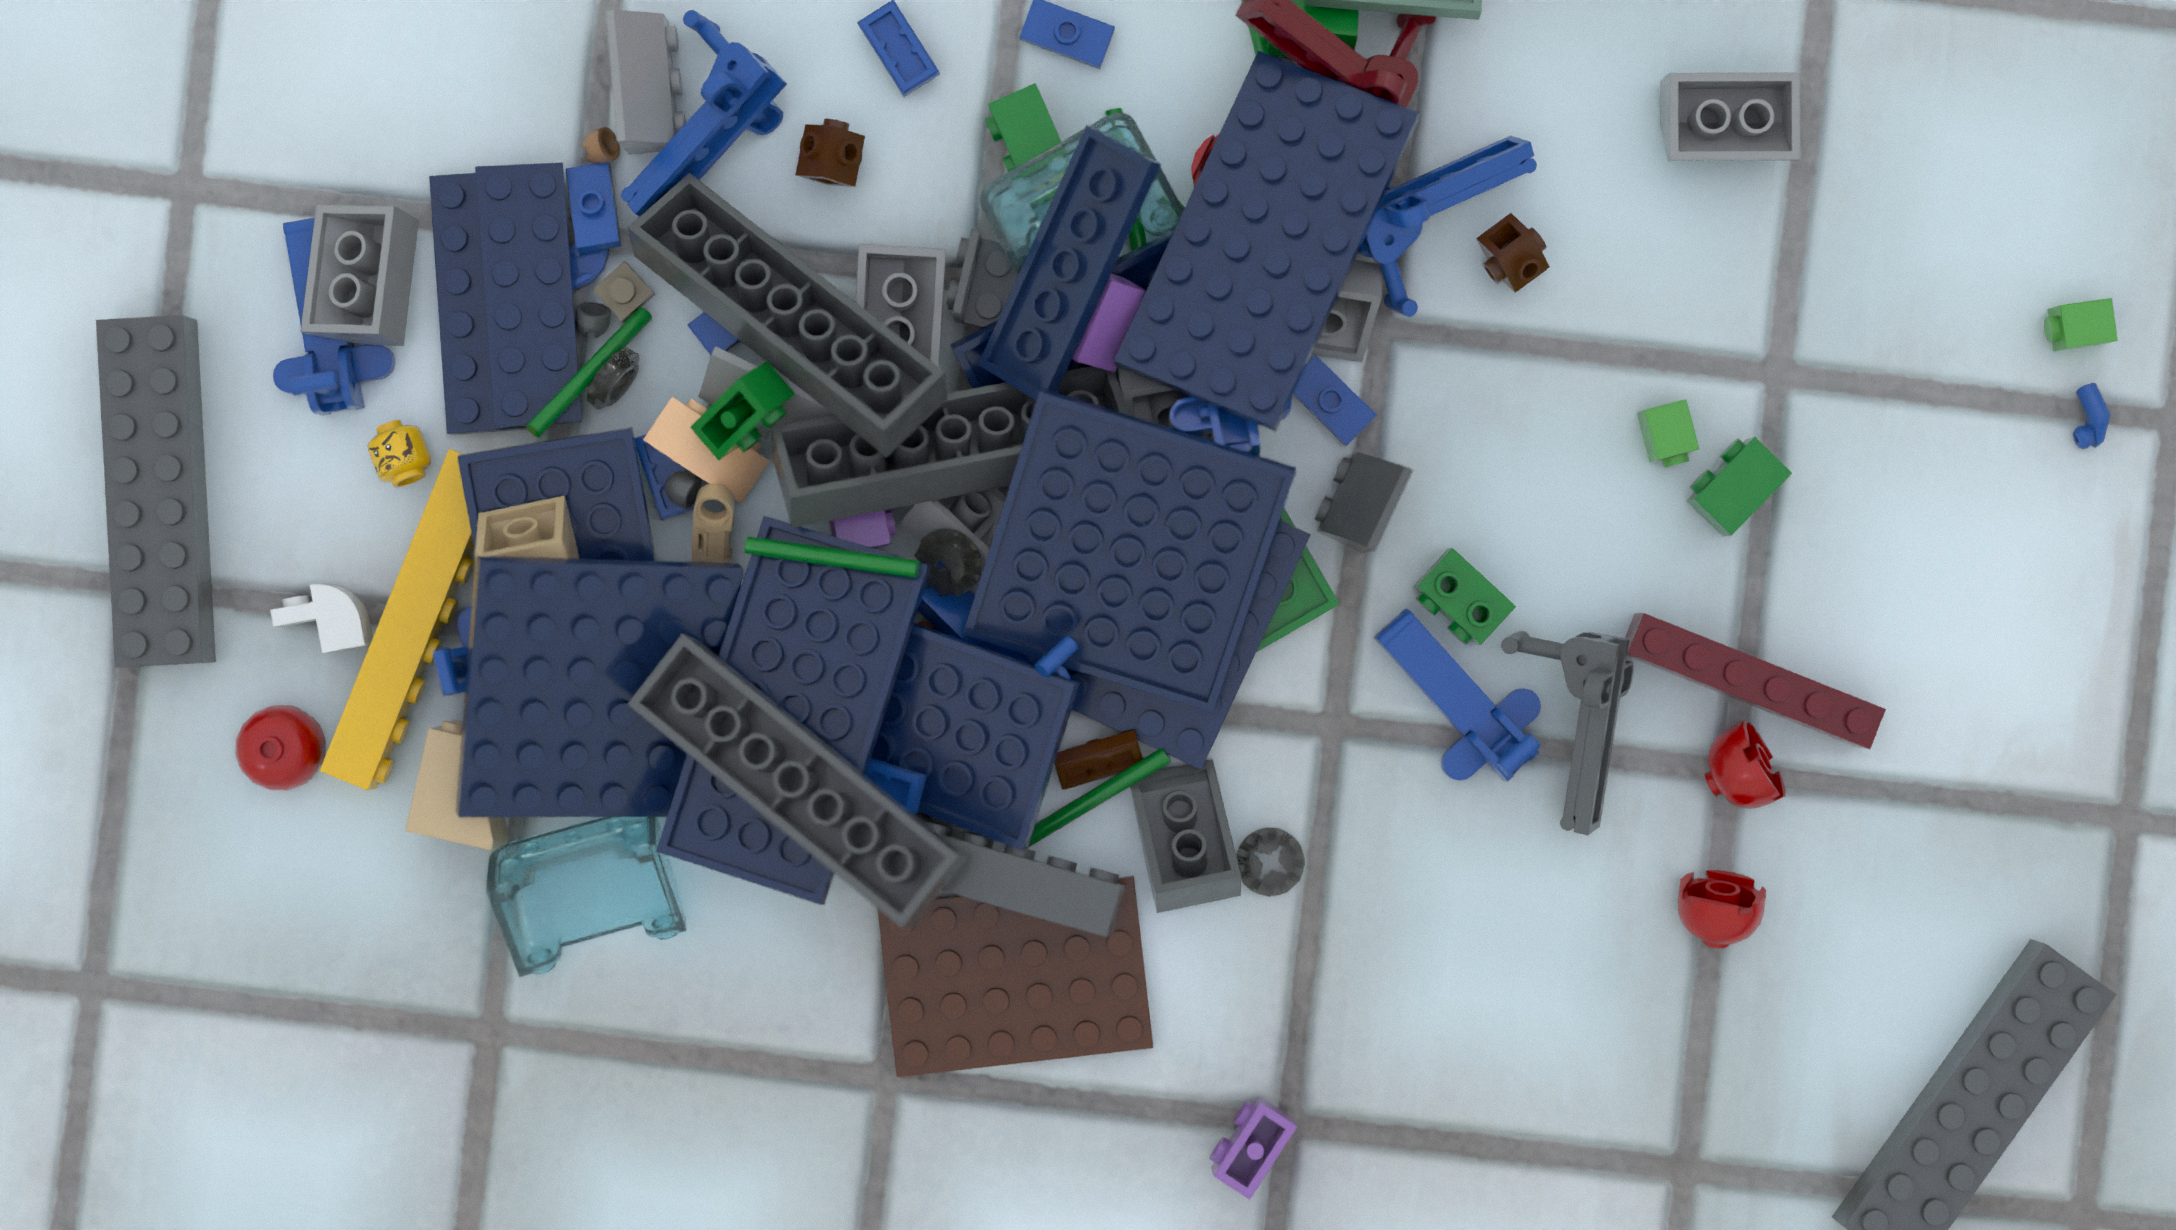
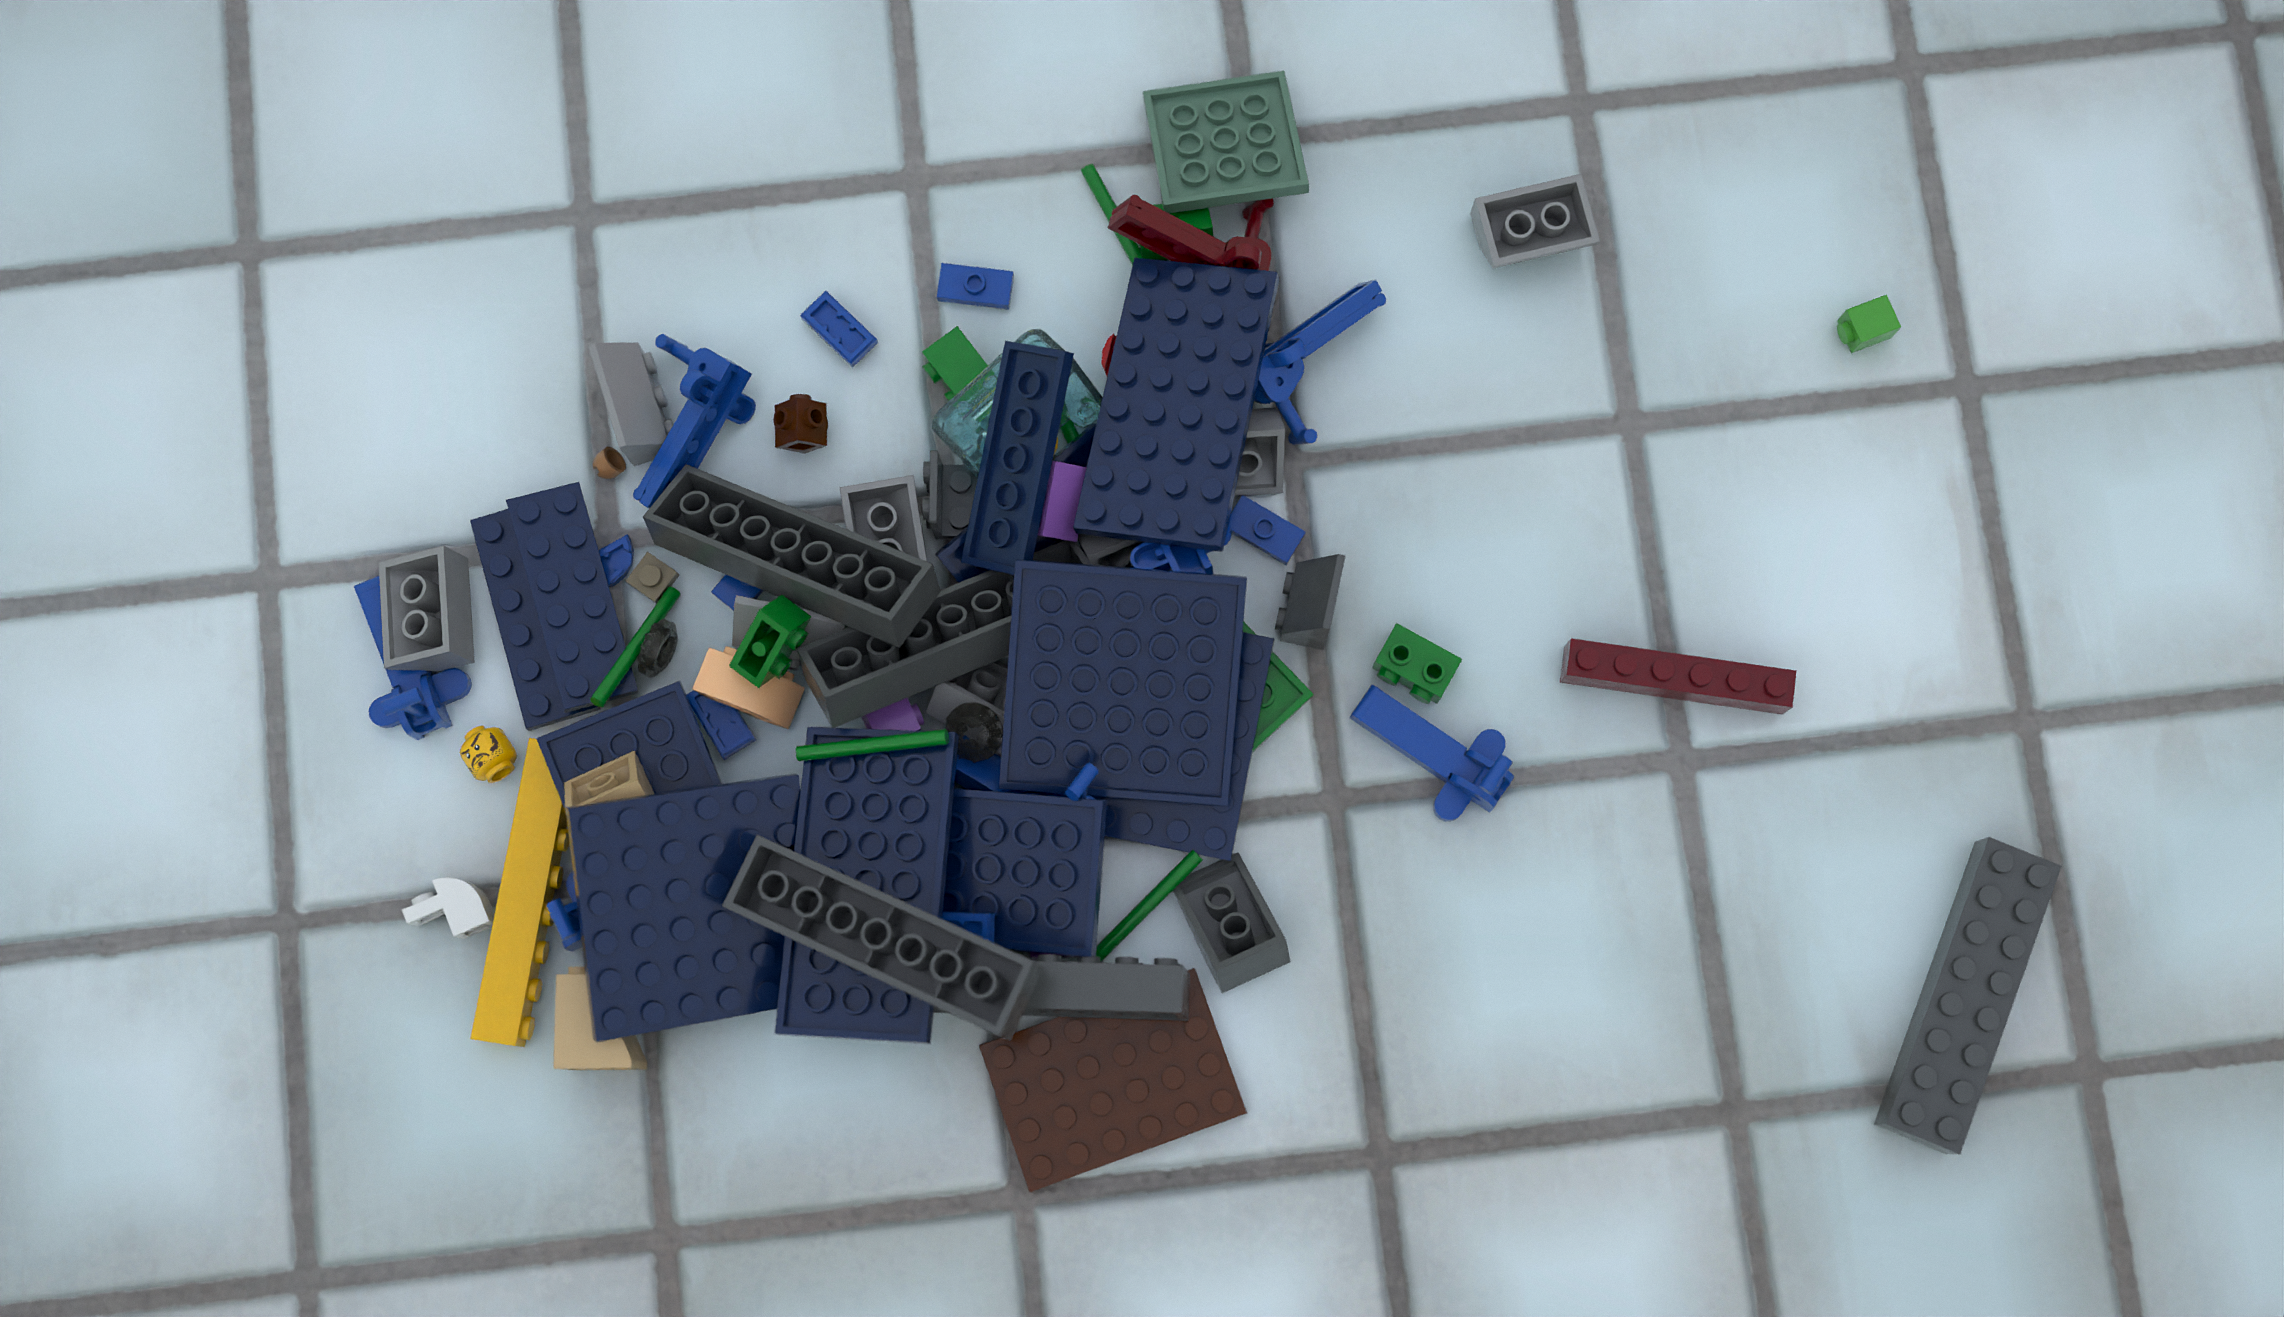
camera: 10 degrees left, 10 degrees down
(155, 491) = (286, 835): dark grey brick -> none
(280, 747) = (433, 1030): red cylinder -> none
(582, 887) = (720, 1090): clear light blue windscreen -> none
(592, 318) = (630, 604): dark grey hinge -> none
(593, 207) = (612, 514): blue plate -> none
(683, 488) = (735, 725): dark grey hinge -> none
(711, 528) = (766, 754): tan piece -> none
(1097, 759) = (1139, 873): reddish brown plate -> none
(1252, 1147) = (1354, 1178): medium lavender brick -> none
(1266, 841) = (1317, 944): clear smoke gear -> none
(1513, 253) = (1385, 373): reddish brown brick -> none
(1599, 676) = (1546, 698): dark grey piece -> none
(1668, 433) = (1552, 489): bright green brick -> none
(1721, 907) = (1703, 874): red cylinder -> none
(1738, 485) = (1622, 517): green brick -> none
(1743, 769) = (1689, 751): red cylinder -> none
(2096, 417) = (1903, 397): blue arm -> none

